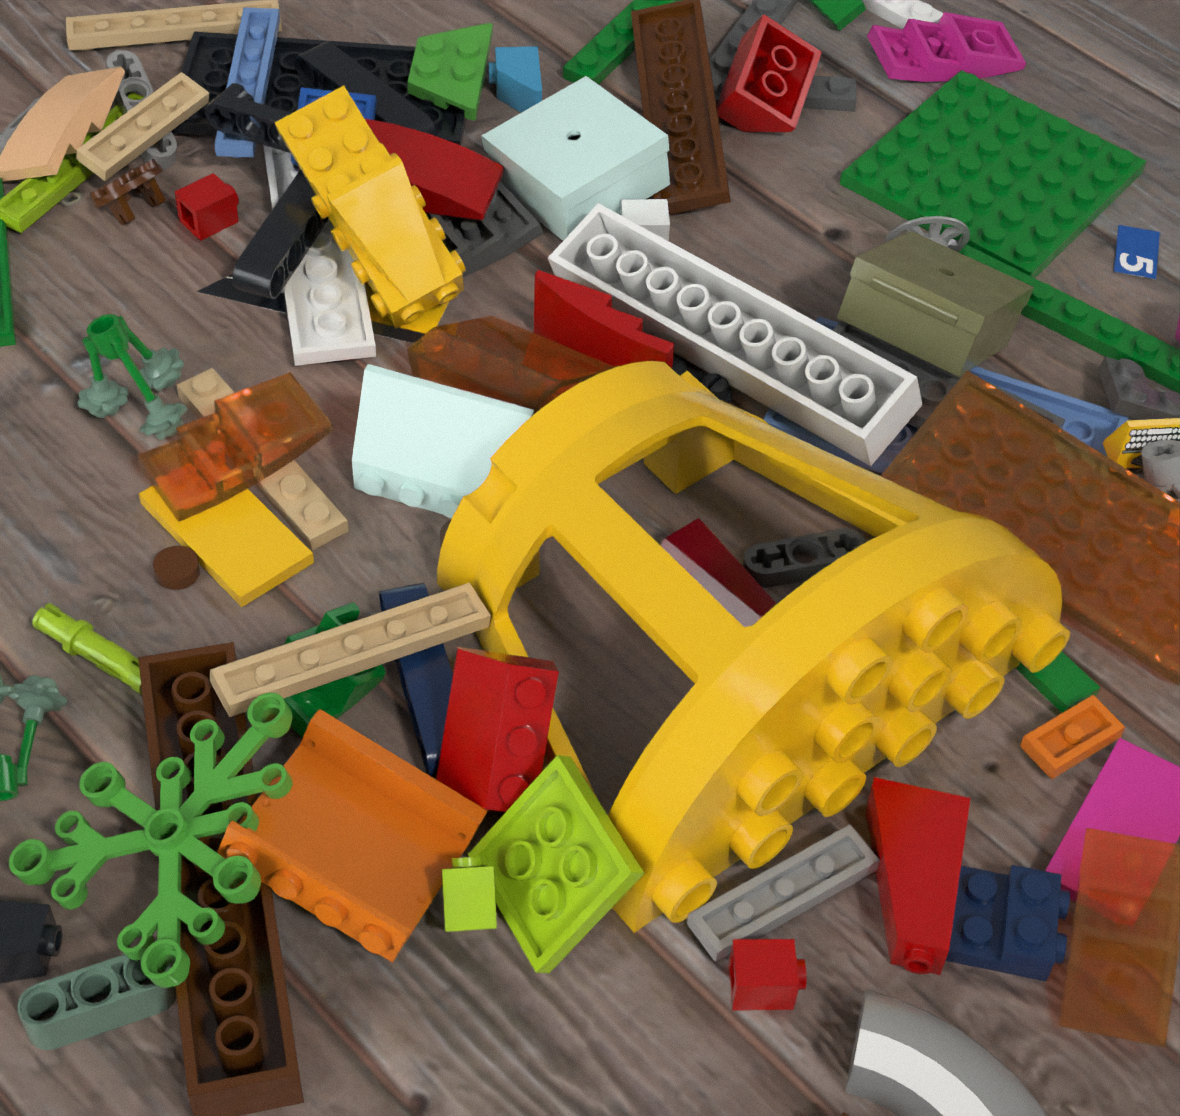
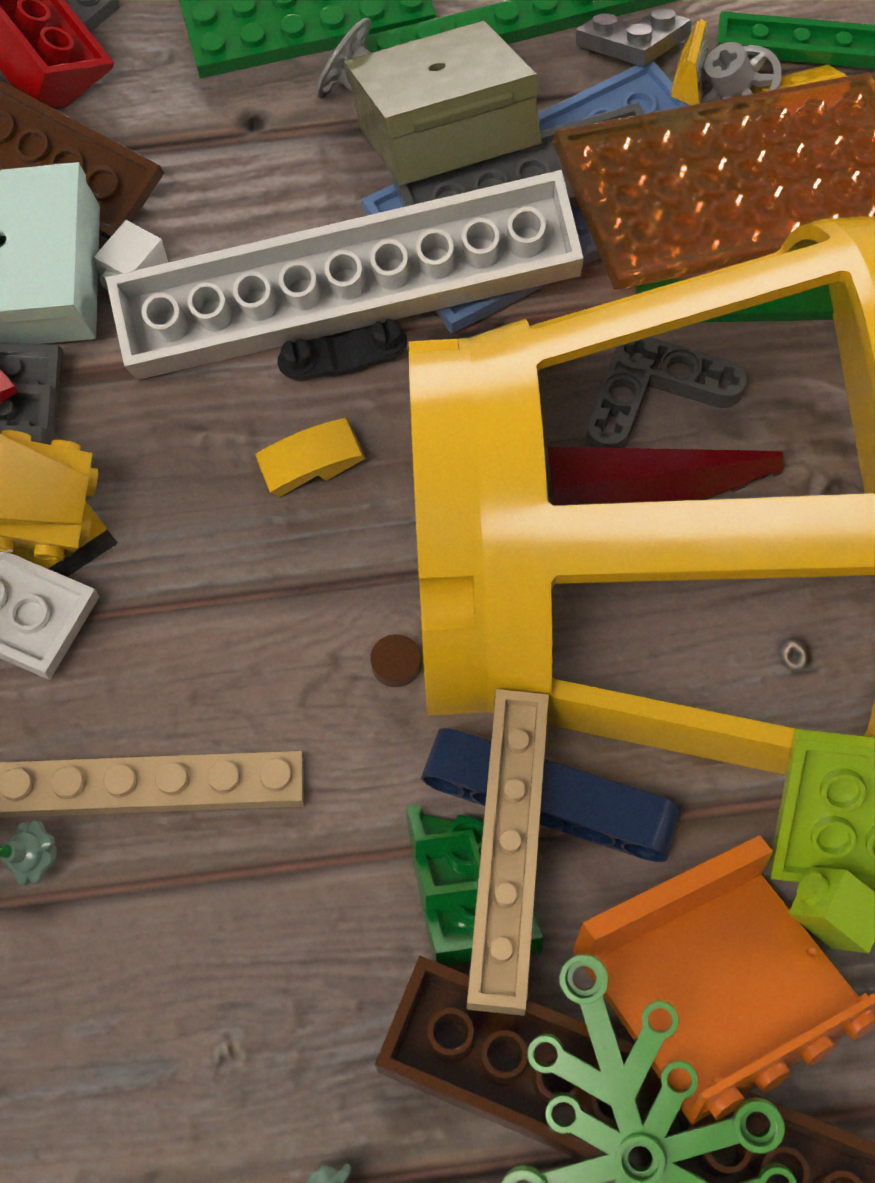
camera: 50 degrees left, 15 degrees up
(81, 640) = (291, 1096): lime pin -> none
(176, 567) = (238, 952): reddish brown tile -> none
(235, 446) = (136, 804): clear orange slope -> none
(236, 543) = (219, 874): yellow tile -> none
(426, 439) = (310, 612): light aqua slope -> none
(496, 726) = (697, 769): red slope -> none
(500, 362) = (231, 493): clear orange slope -> none
(589, 324) = (261, 391): red slope -> none

